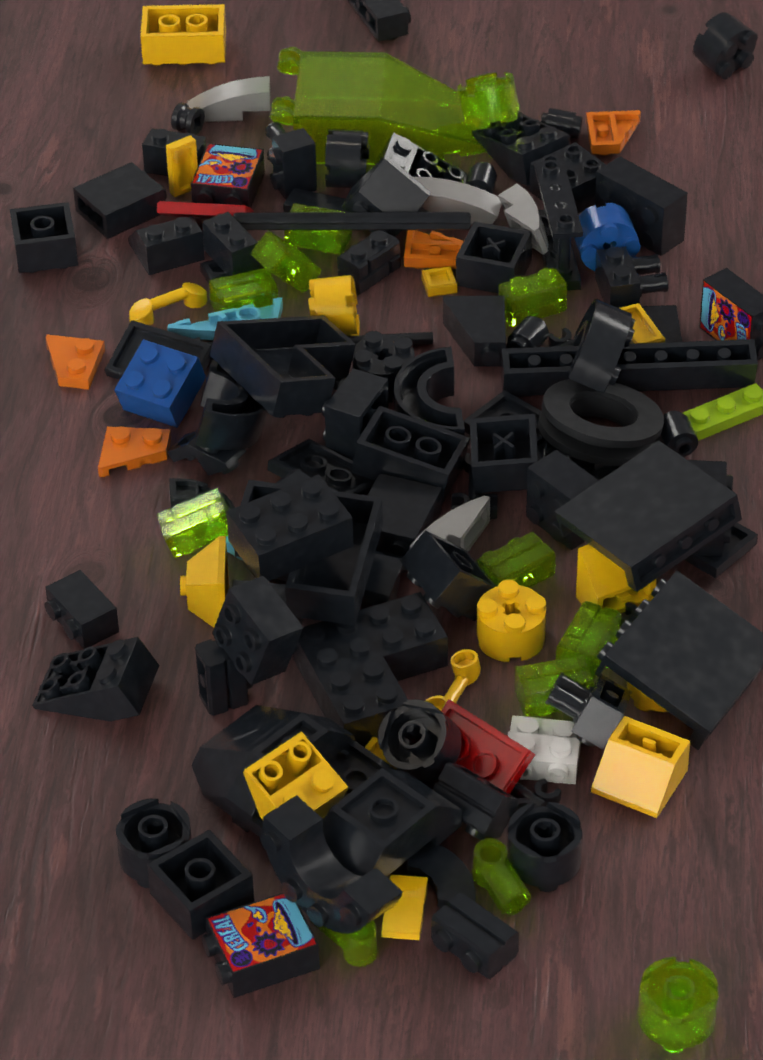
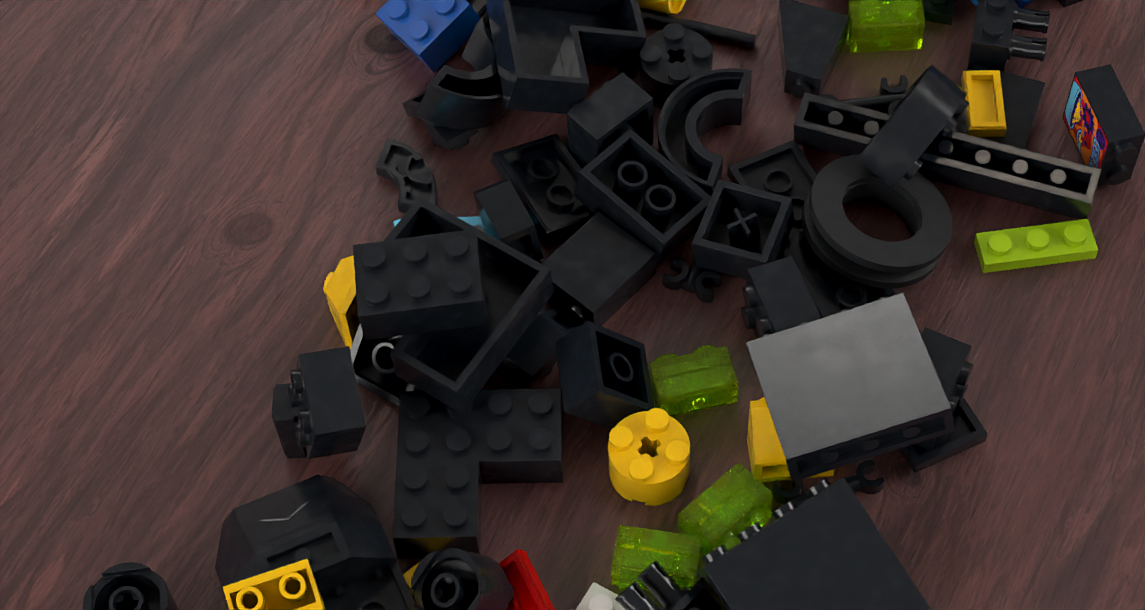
camera: 25 degrees right, 15 degrees up
(81, 609) = (214, 279): black brick -> none
(99, 681) = (187, 377): black slope -> none
(133, 447) = (372, 85): orange wing -> none
(194, 523) = (373, 208): clear neon green brick -> none
(463, 524) = (650, 311): light grey slope -> none
(466, 671) = (574, 499): yellow bar -> none
(529, 333) = (855, 76): black brick -> none
(679, 433) = (962, 261): black brick -> none

